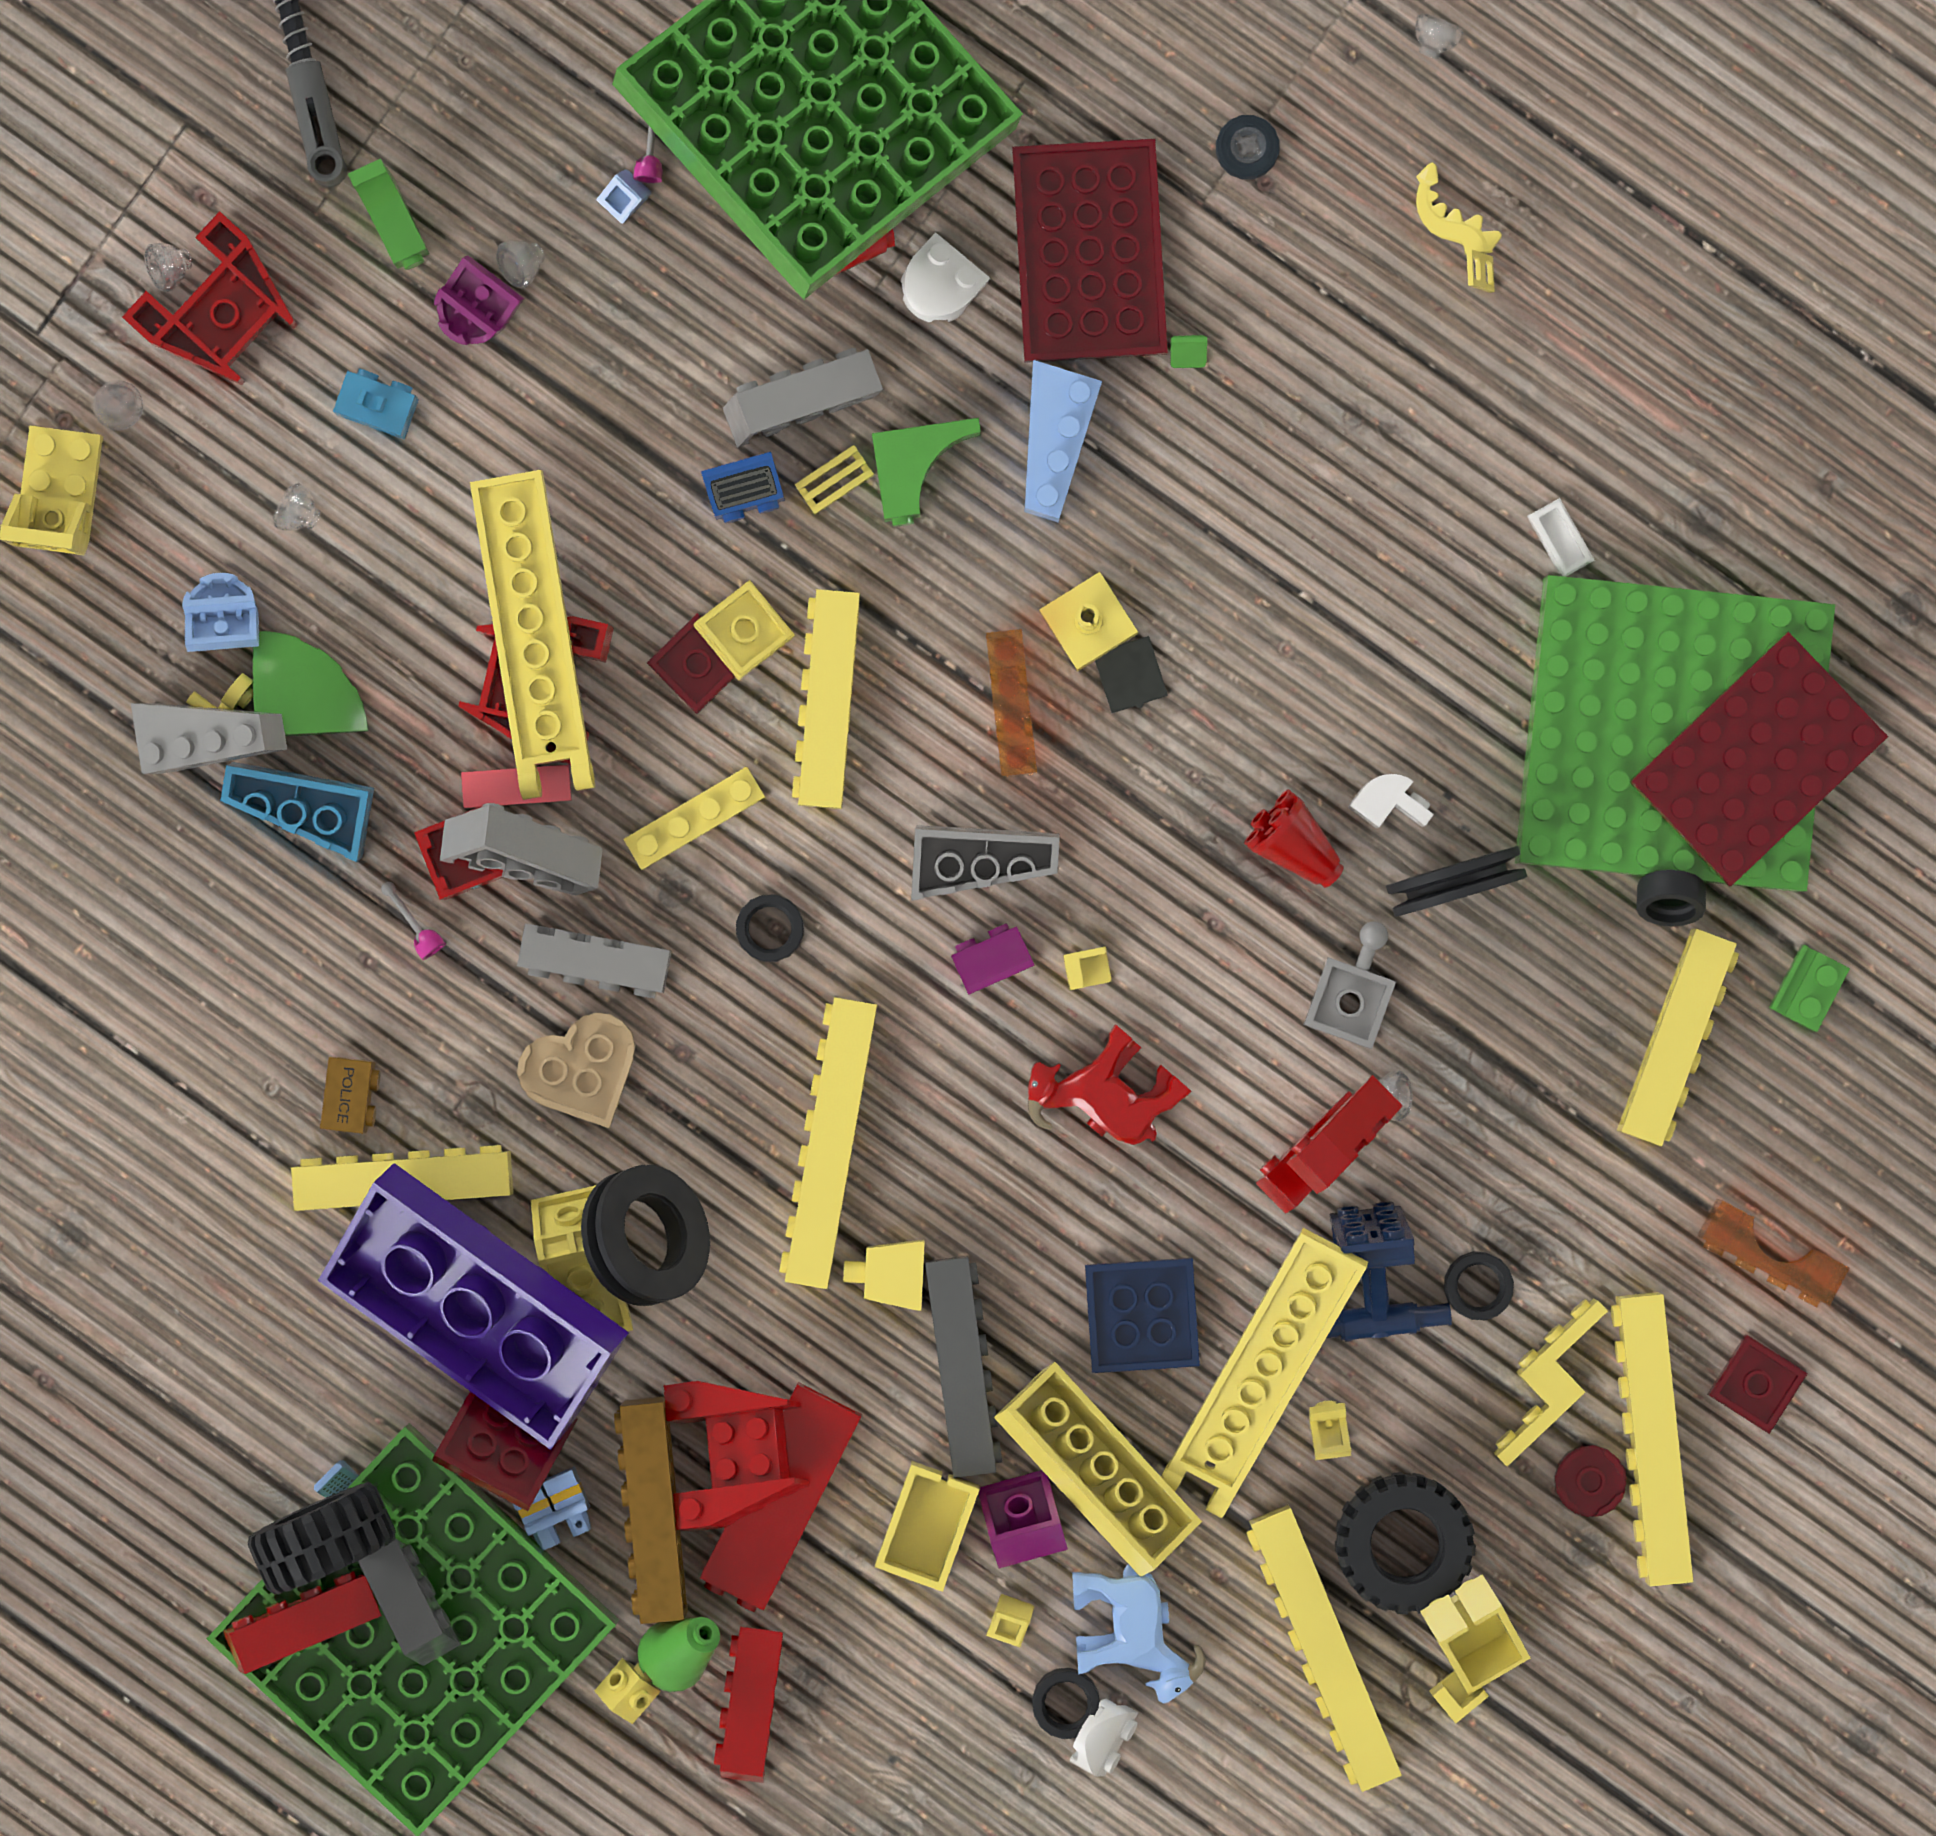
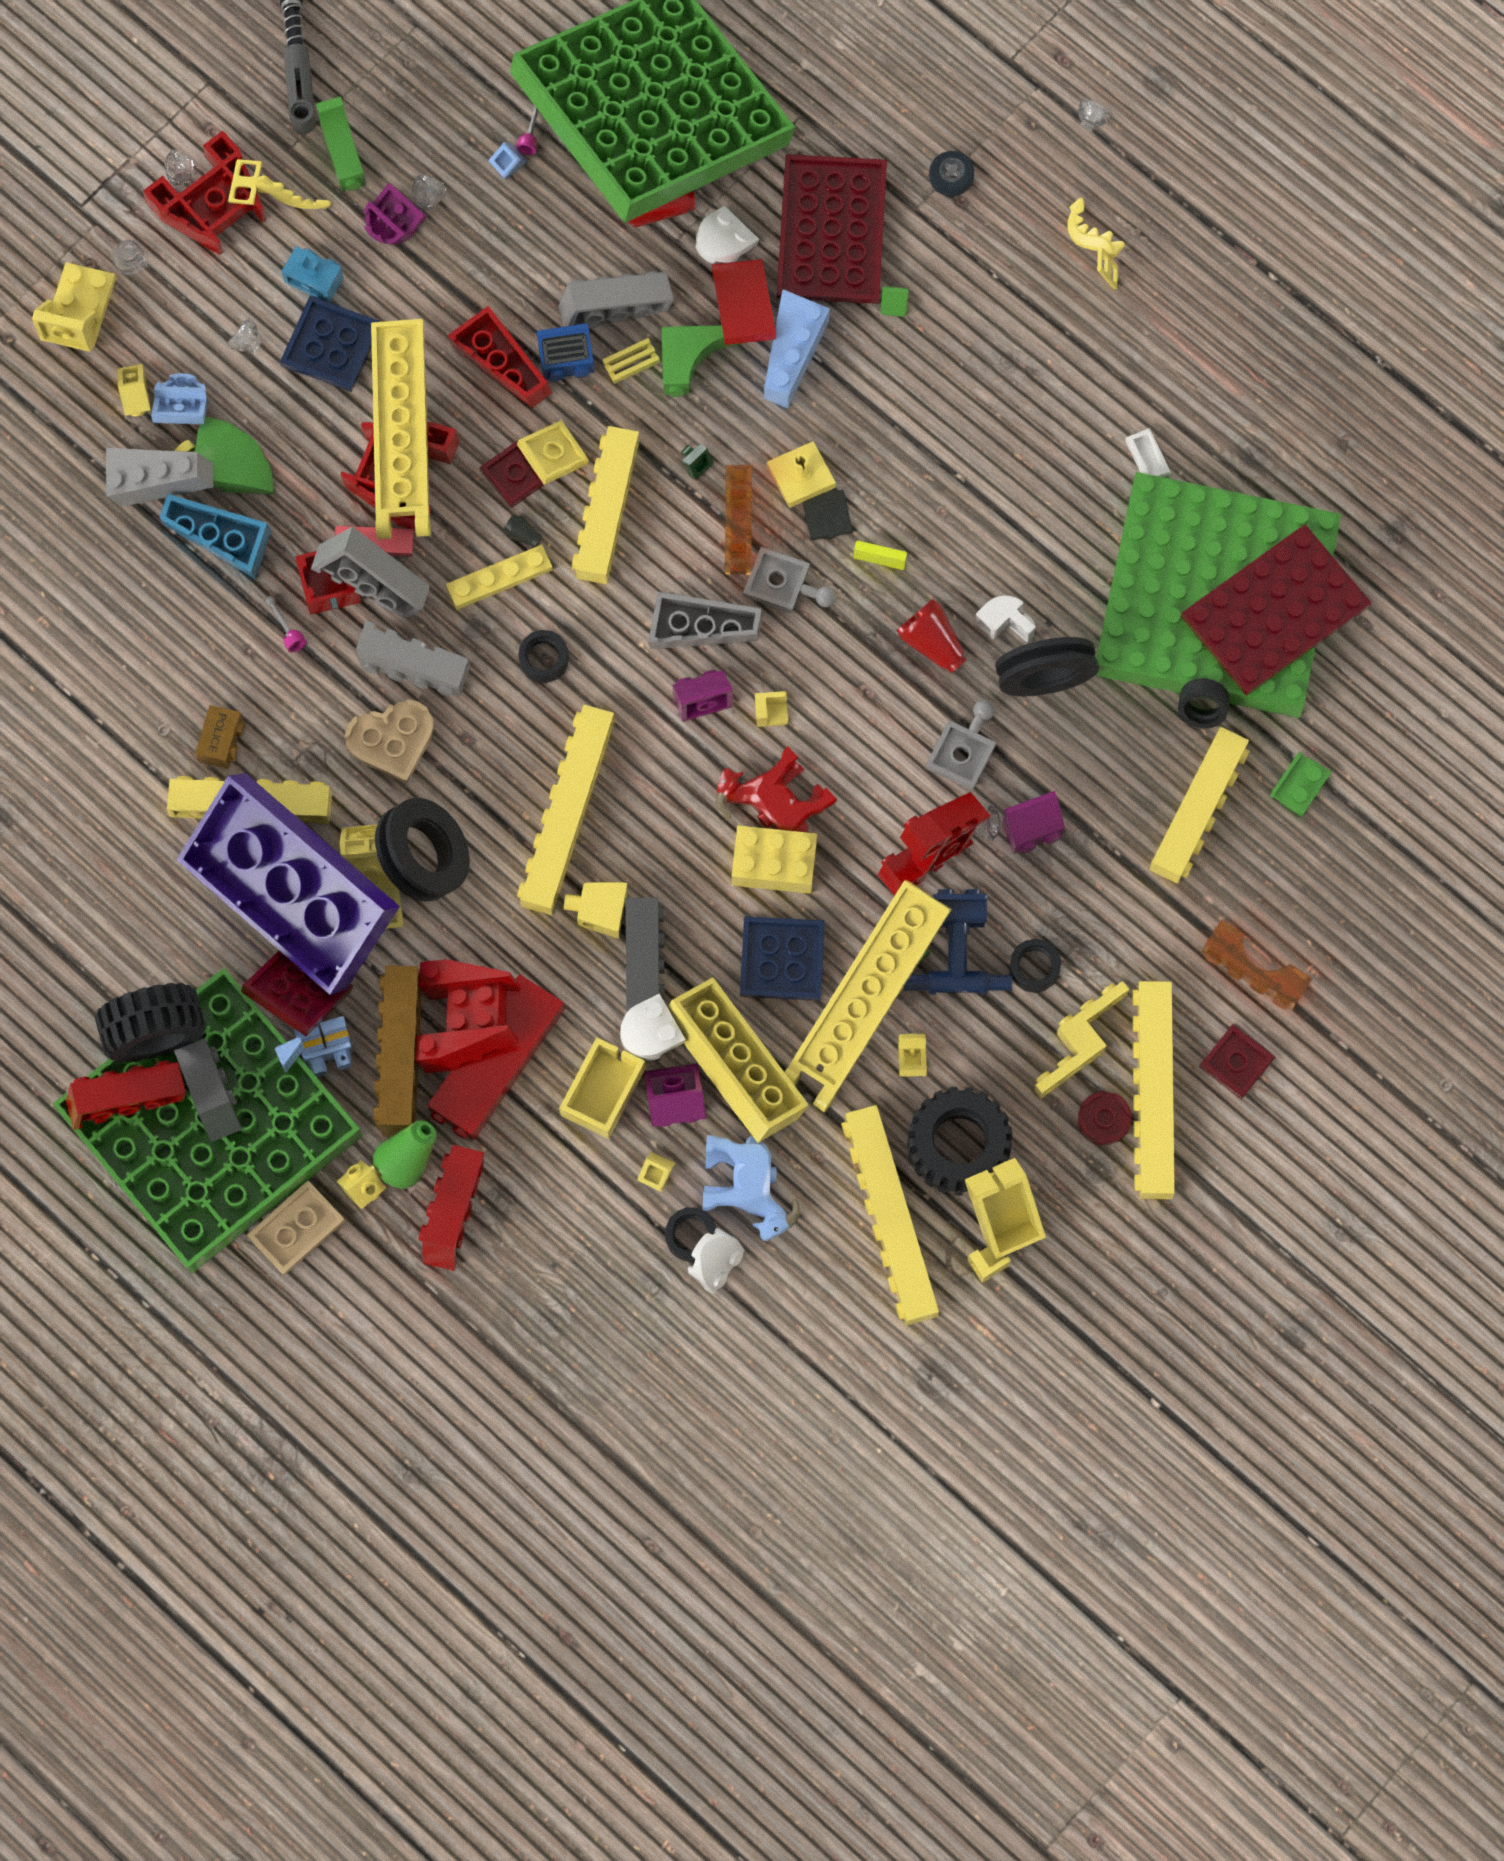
camera: 10 degrees right, 15 degrees down
(153, 605) = (133, 390): none -> light yellow slope
(288, 289) = (265, 185): none -> light yellow piece
(415, 504) = (329, 344): none -> dark blue plate
(506, 1541) = (289, 1052): none -> light blue slope
(549, 1755) = (296, 1228): none -> tan plate
(651, 497) = (496, 352): none -> red wedge
(717, 750) = (522, 531): none -> pearl dark grey cone
(943, 620) = (696, 460): none -> dark green tile
(980, 381) = (743, 302): none -> red tile
(981, 1447) = (650, 1030): none -> white slope
(1096, 771) = (784, 595): none -> light grey plate
(1116, 1181) = (774, 859): none -> light yellow brick
(1210, 729) = (880, 555): none -> neon yellow tile
(1458, 1093) = (1033, 823): none -> magenta slope

